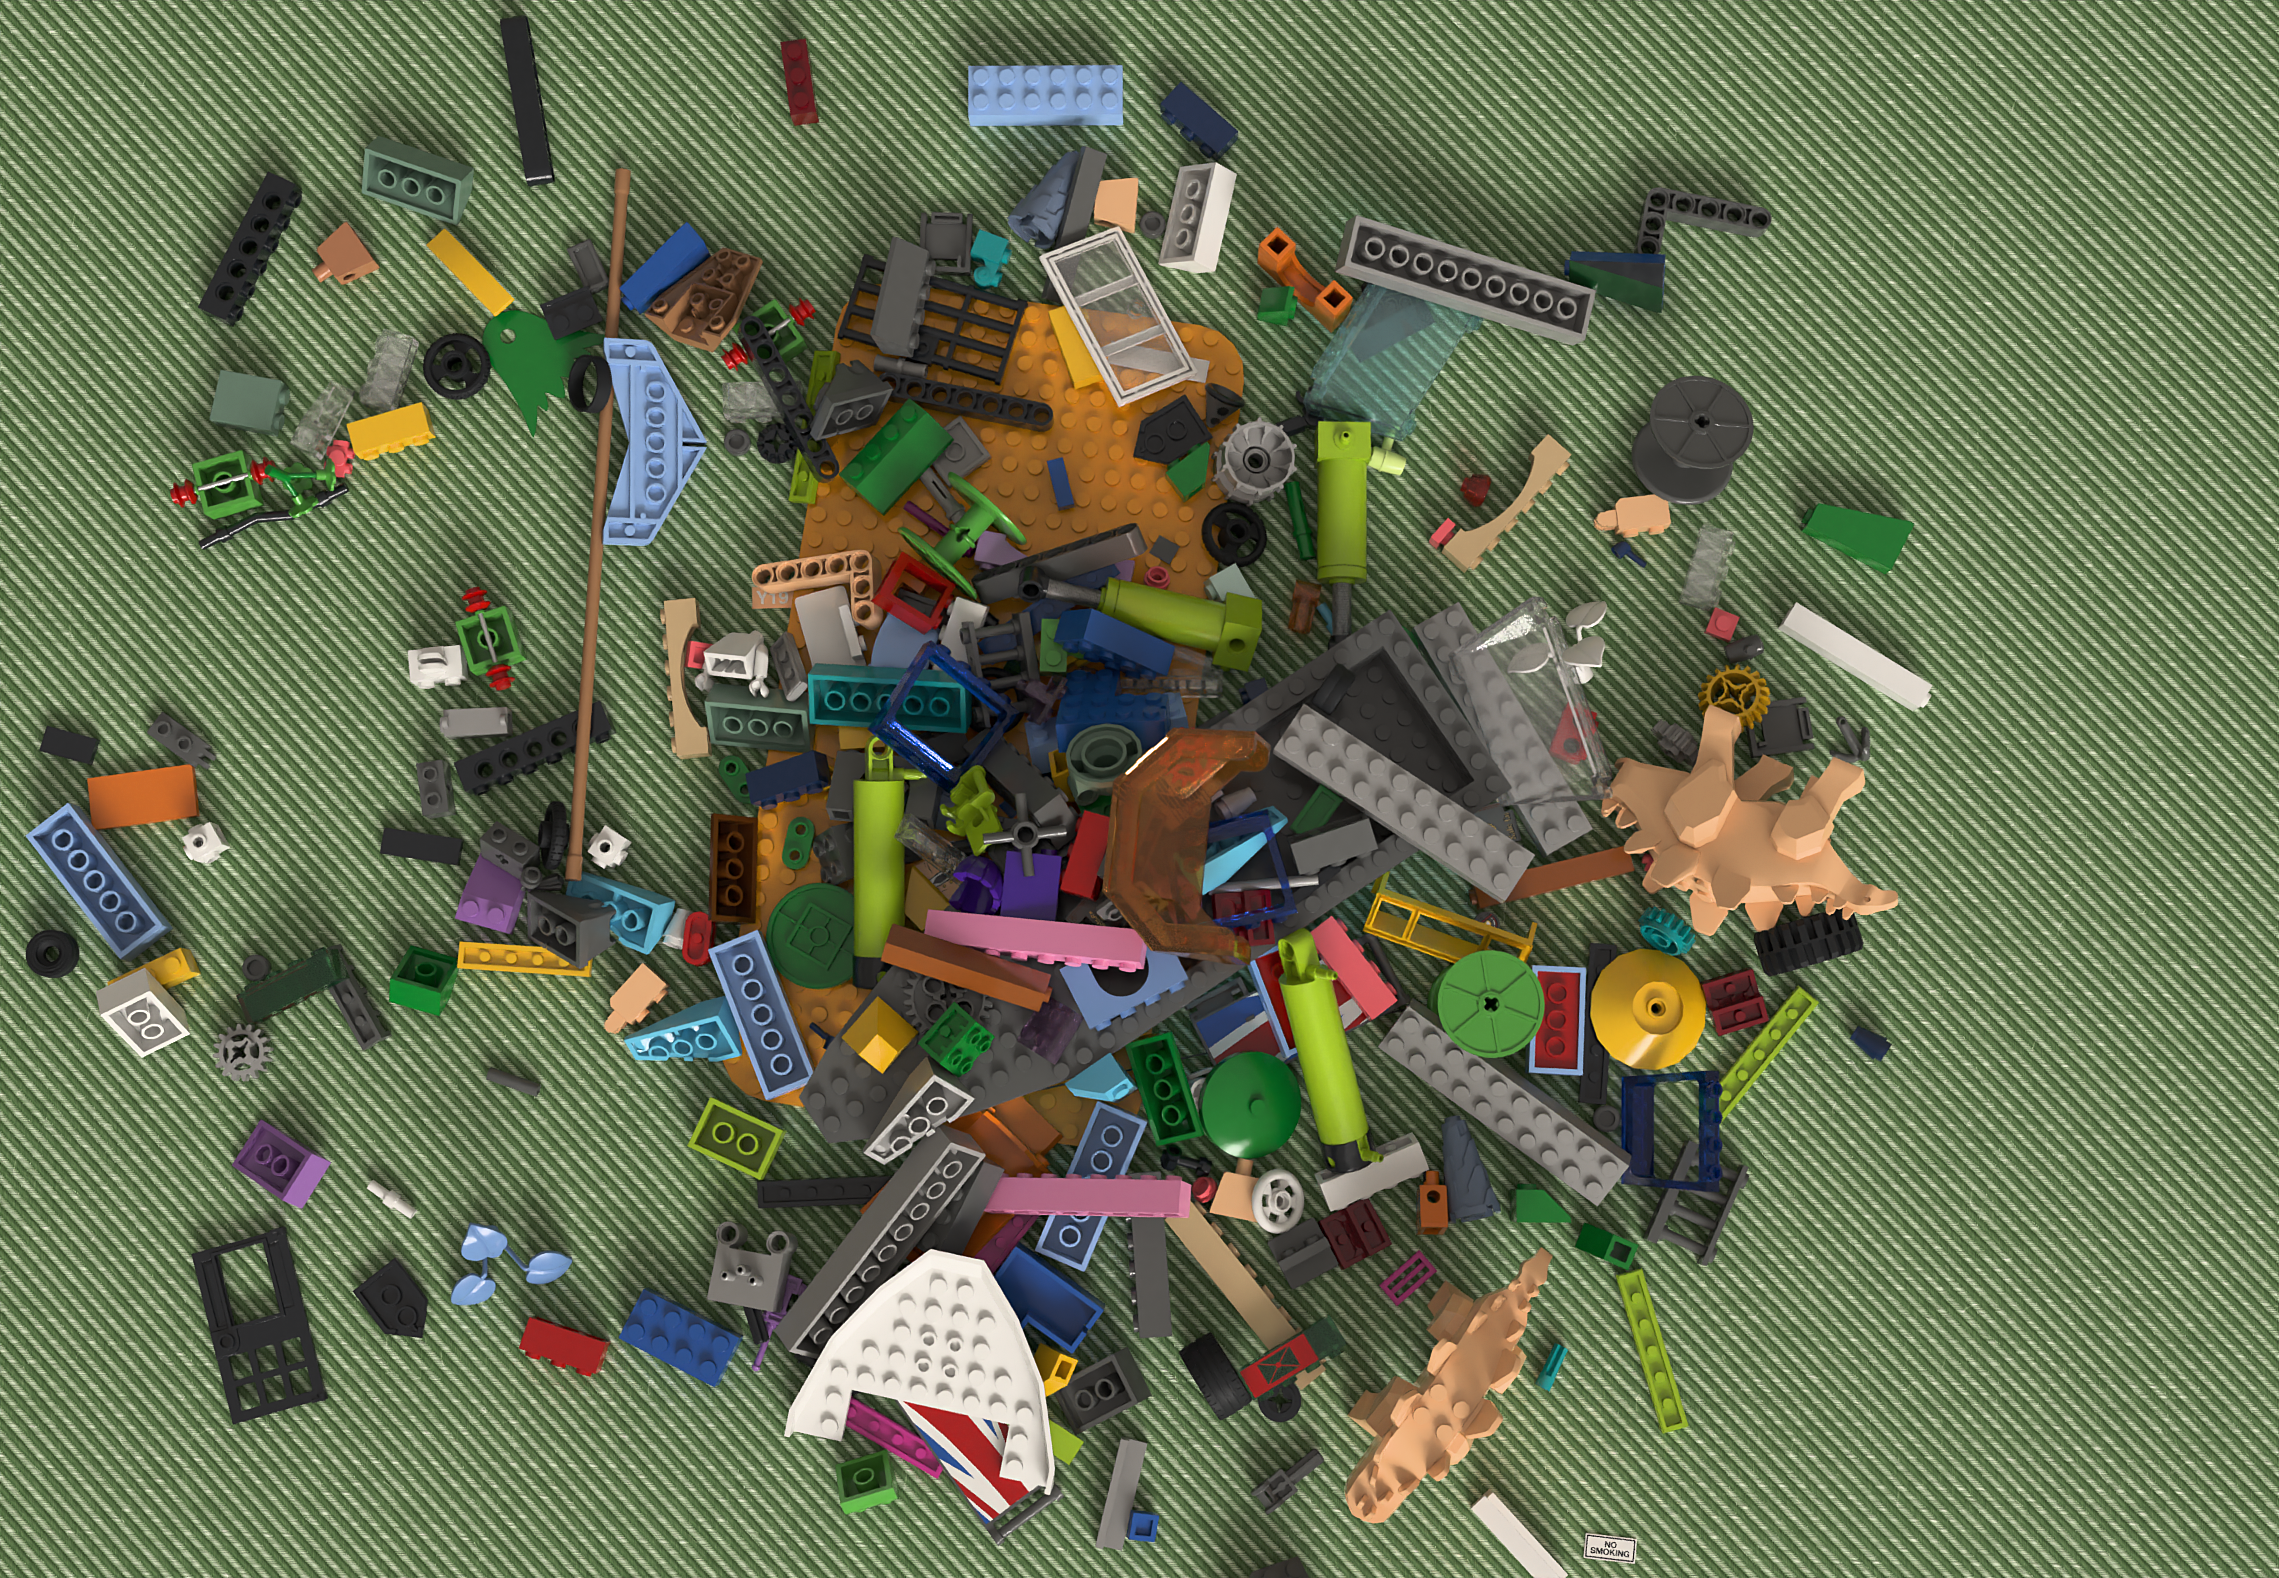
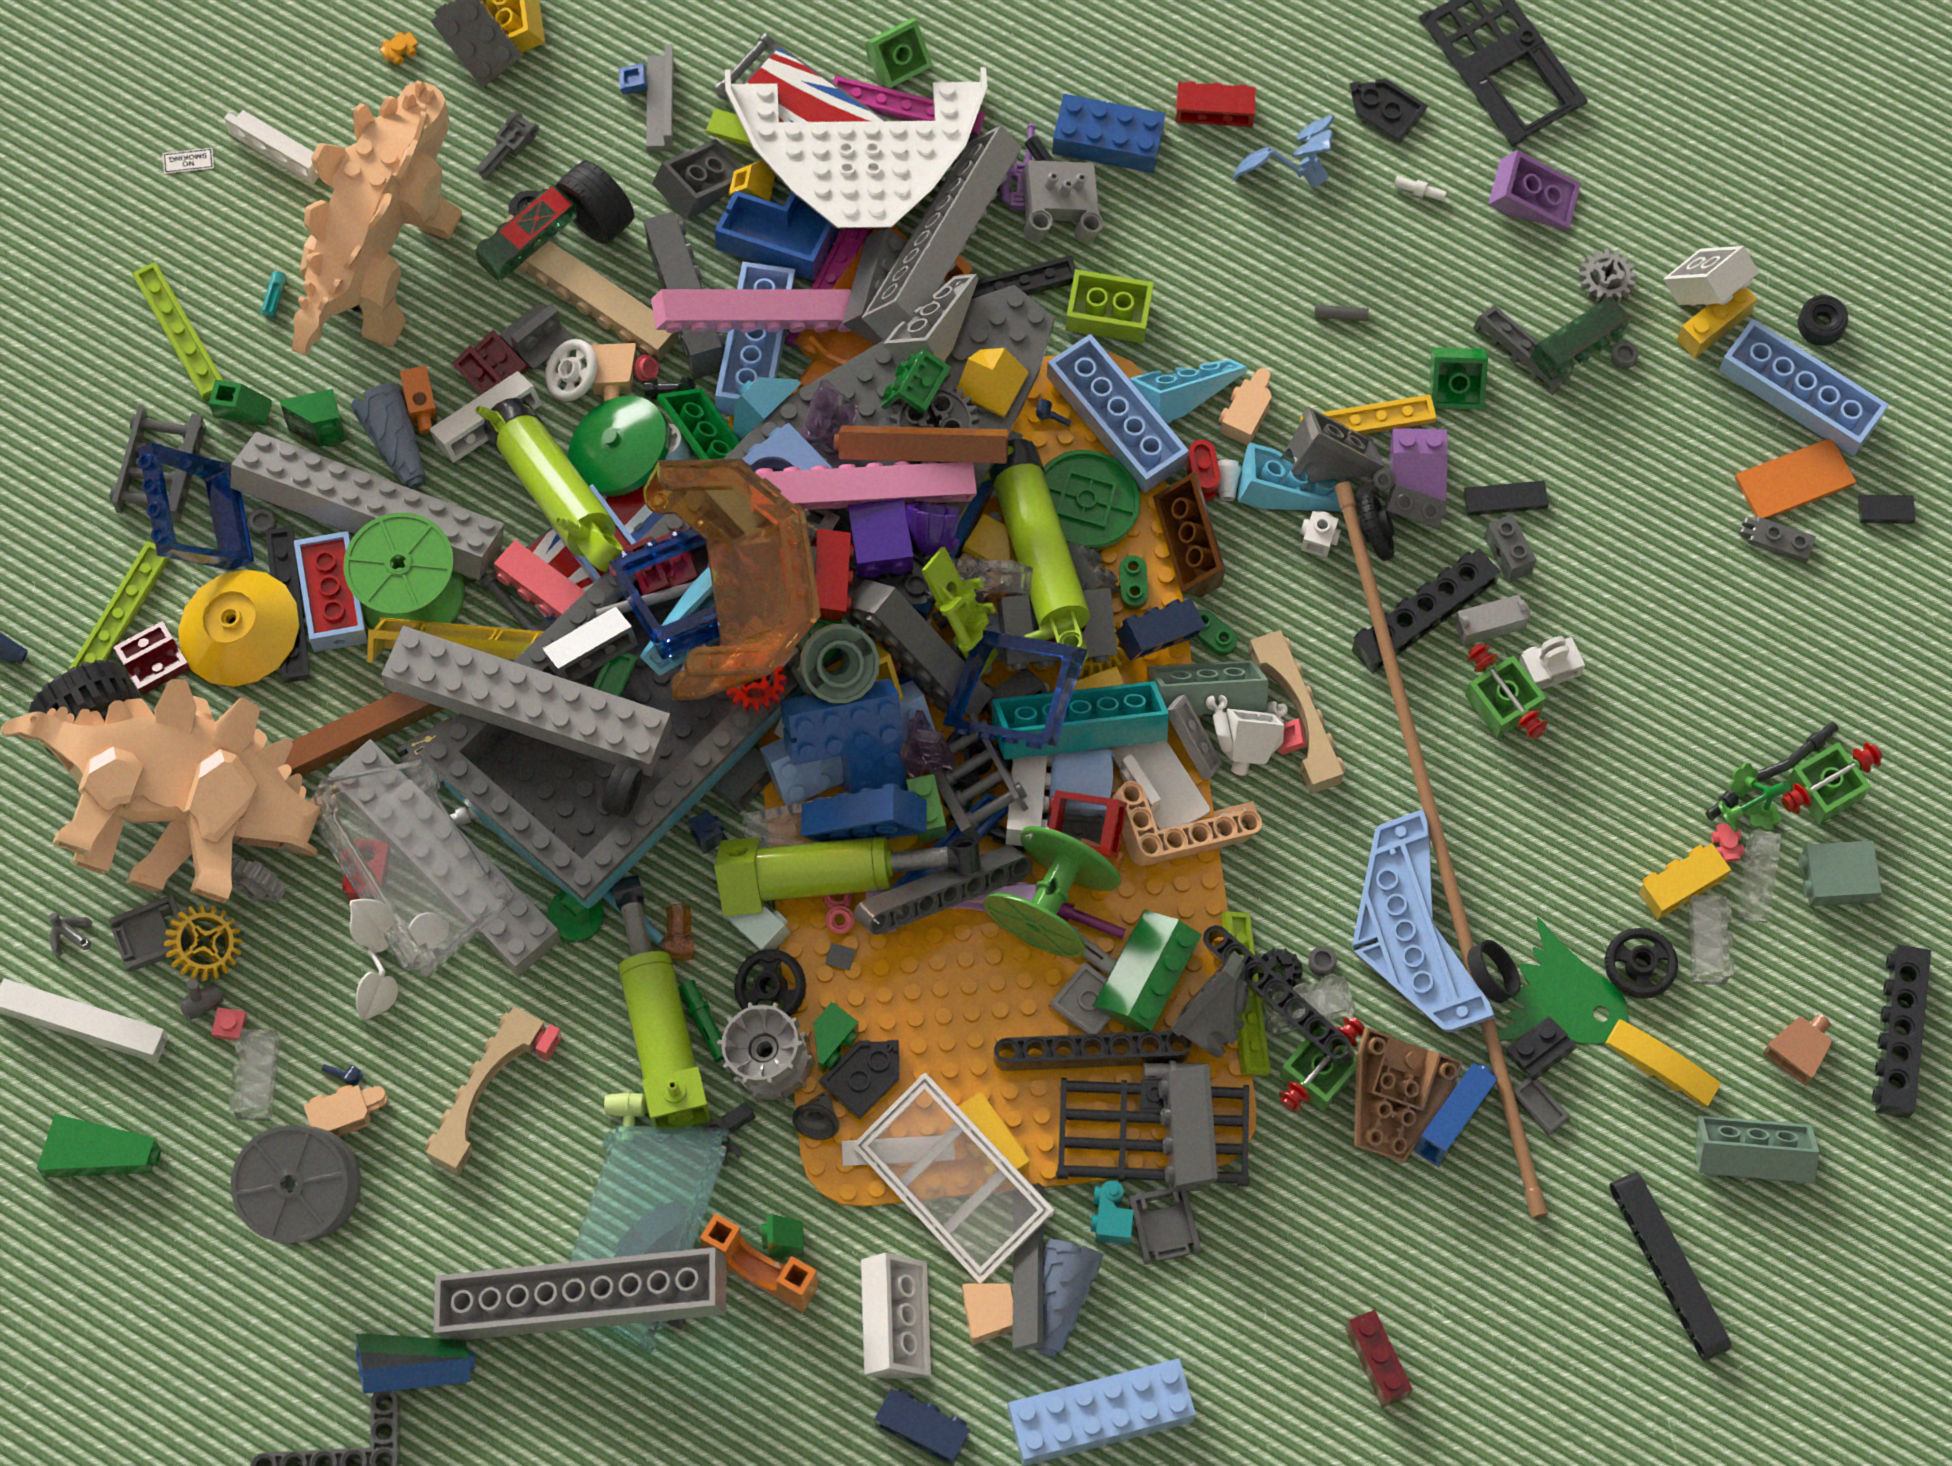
camera: 160 degrees right, 15 degrees down
(205, 843) = (1715, 446): white brick -> none
(1037, 833) = (904, 579): dark grey bar -> none
(1060, 484) = (967, 993): blue piece -> none
(1152, 225) = (944, 1302): dark grey tile -> none
(1390, 1292) = (438, 344): dark pink tile -> none
(1476, 489) = (522, 1097): clear red cone -> none
(1666, 931) = (229, 692): teal gear -> none

